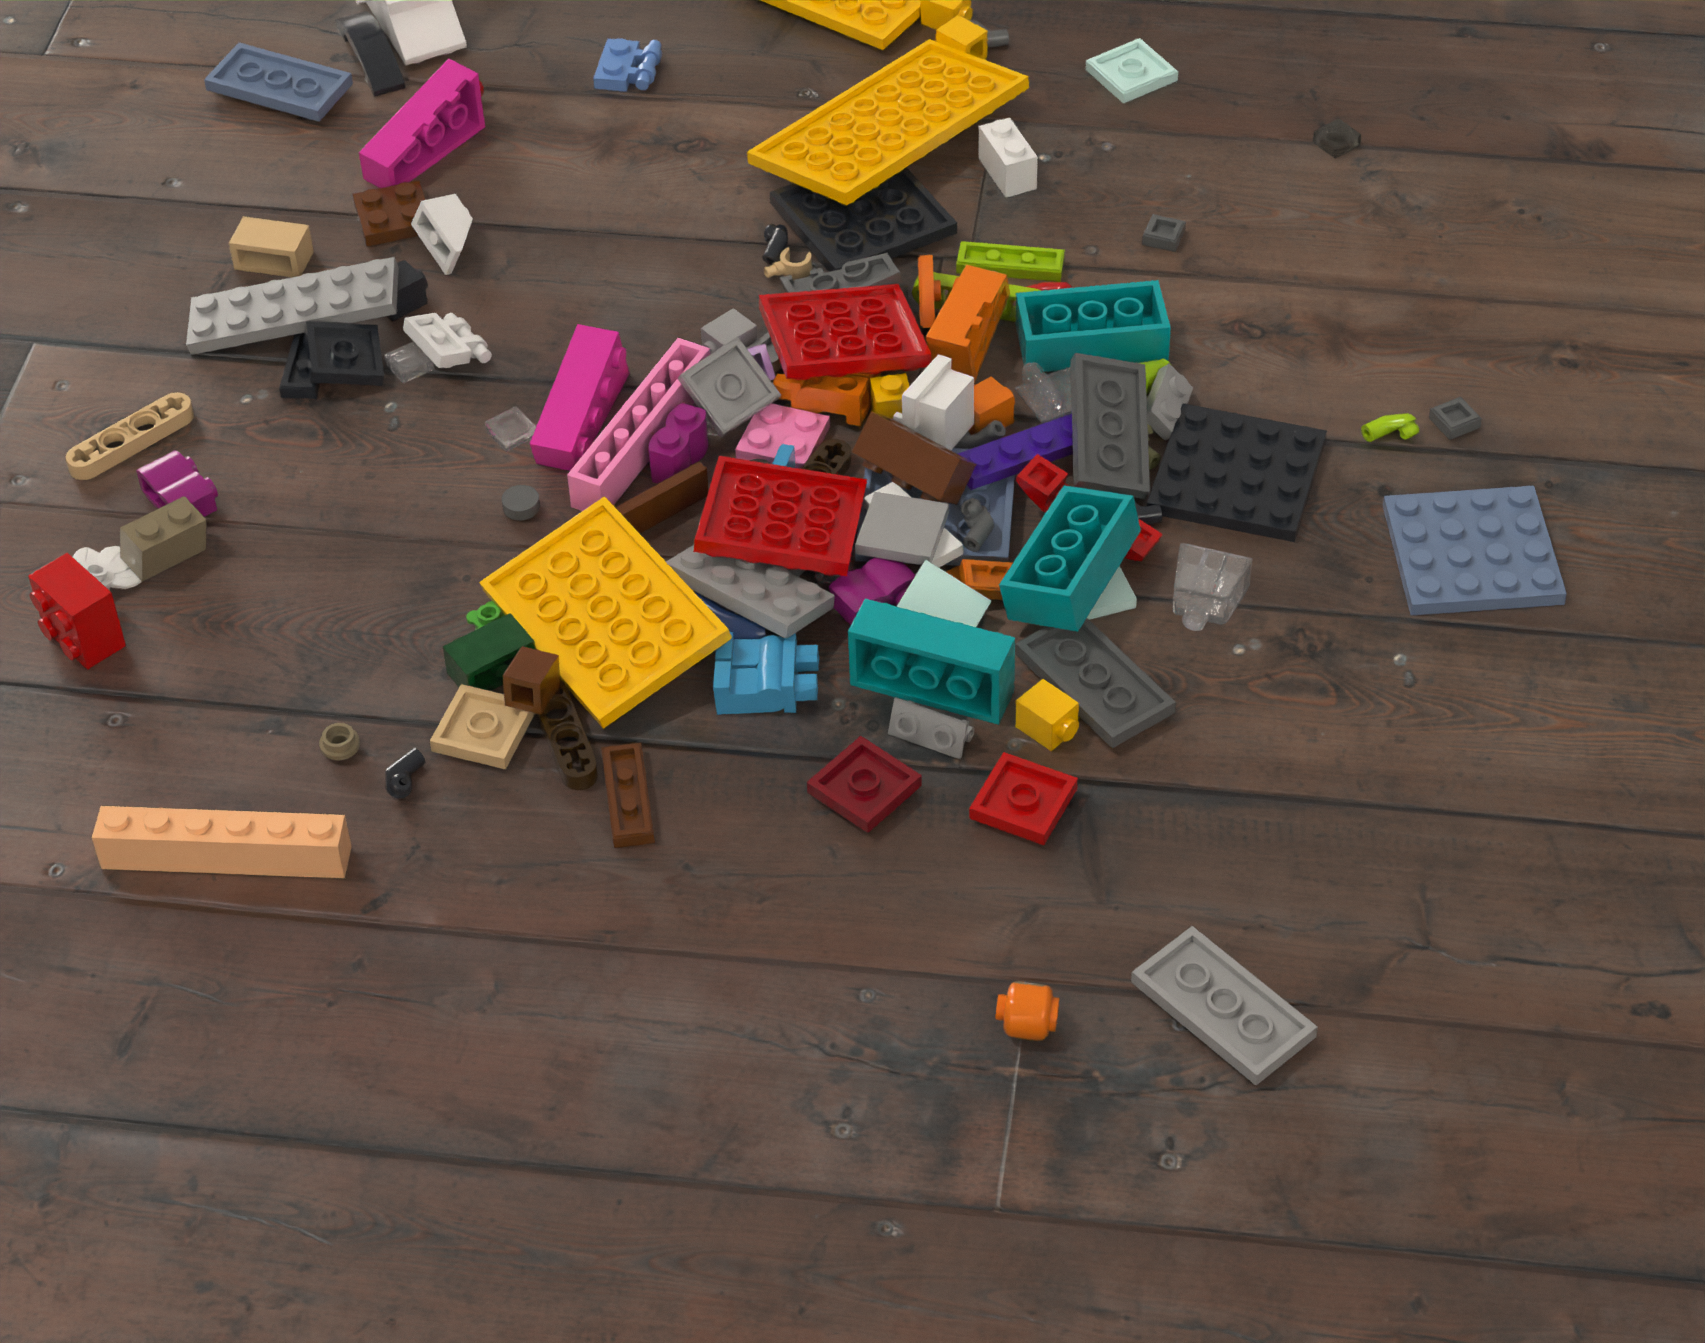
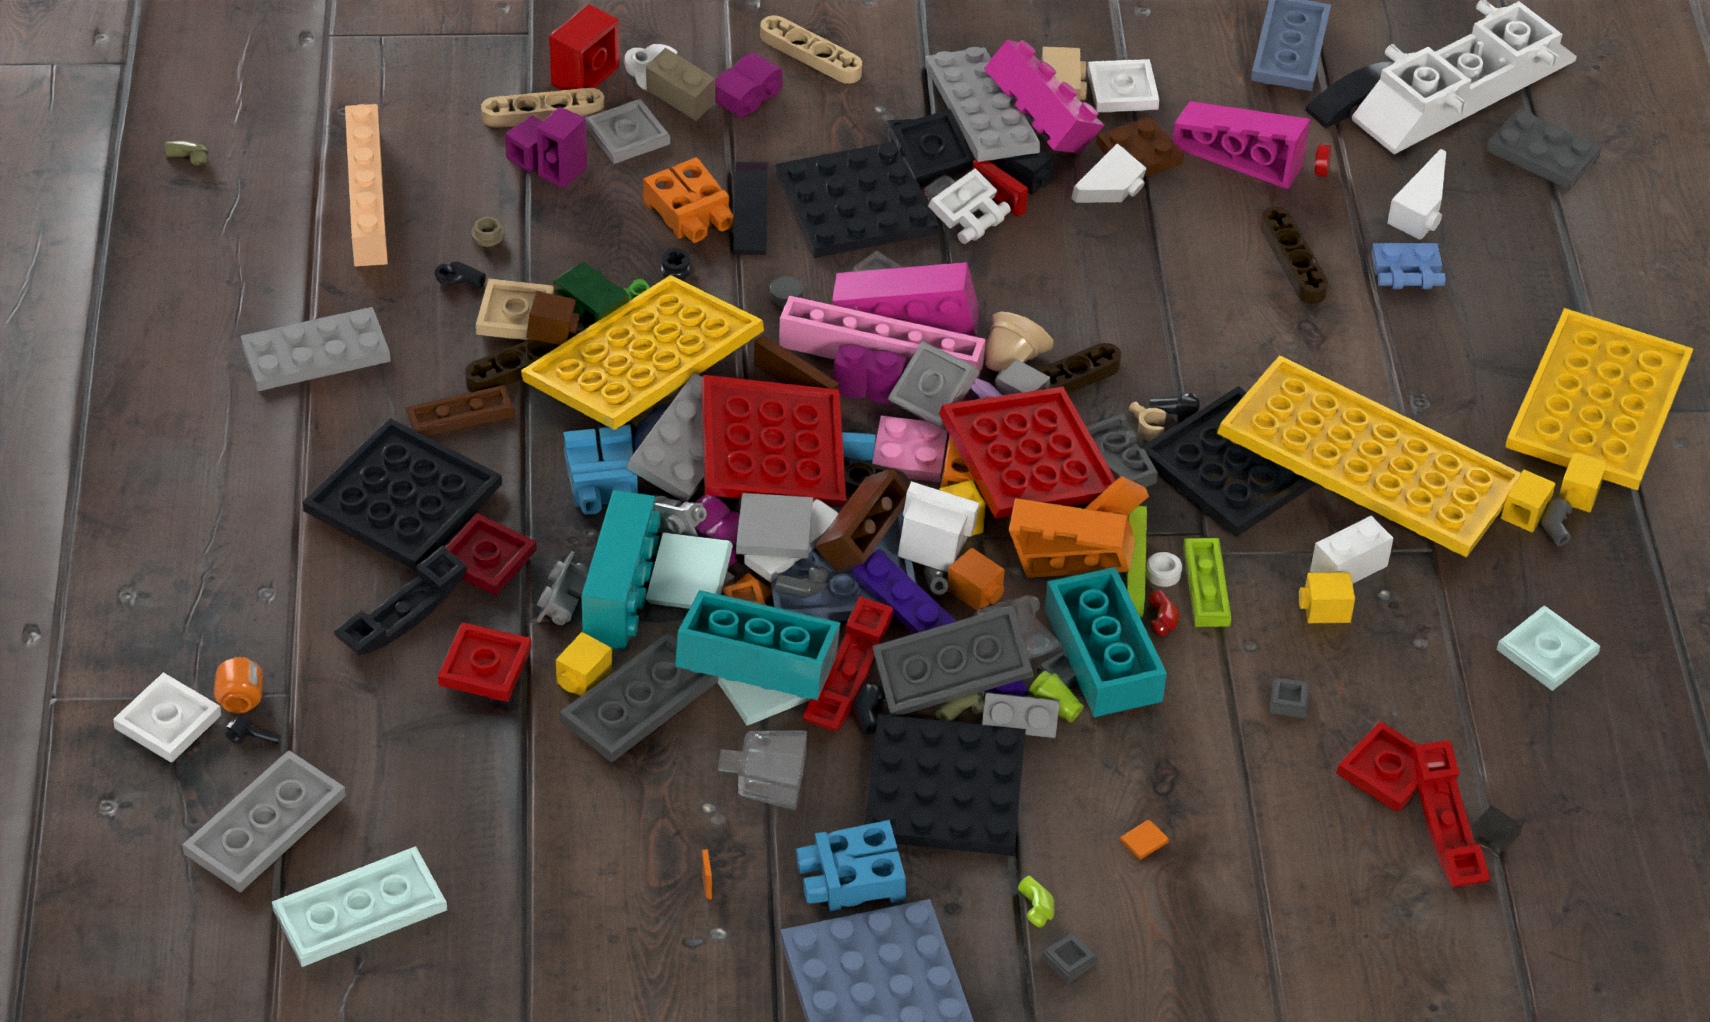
camera: 75 degrees right, 0 degrees up
(73, 1025) = (184, 148): none -> olive arm
(135, 675) = (587, 100): none -> tan beam
(204, 685) = (522, 144): none -> magenta brick
(205, 606) = (627, 131): none -> light grey tile
(240, 646) = (562, 147): none -> magenta brick
(299, 202) = (1123, 85): none -> white plate
(321, 247) = (1044, 97): none -> dark pink wedge
(357, 557) = (688, 203): none -> orange hips
(375, 506) = (750, 208): none -> black slope
(391, 432) = (855, 199): none -> black plate
(439, 301) = (1008, 188): none -> red tile
(450, 595) = (672, 257): none -> black bush
(483, 921) = (315, 348): none -> light grey plate
(543, 33) = (1418, 203): none -> white slope
(549, 135) = (1301, 253): none -> dark brown beam
(663, 327) = (1013, 339): none -> tan piece
(707, 292) = (1097, 361): none -> dark brown beam
(752, 851) = (402, 493): none -> black plate
(840, 620) = (679, 517): none -> light grey hinge
(924, 861) = (407, 607): none -> black slope
(1055, 182) = (1328, 597): none -> yellow brick
(1058, 1087) = (167, 717): none -> white plate
(1084, 1024) = (242, 726): none -> black hand
(1261, 182) = (1382, 766): none -> red plate
(1317, 352) = (1144, 839): none -> orange piece
(1340, 648) = (706, 873): none -> orange piece
(1343, 542) = (853, 866): none -> dark azure hips
(1344, 936) = (359, 906): none -> light aqua tile
(1368, 163) = (1446, 815): none -> red slope

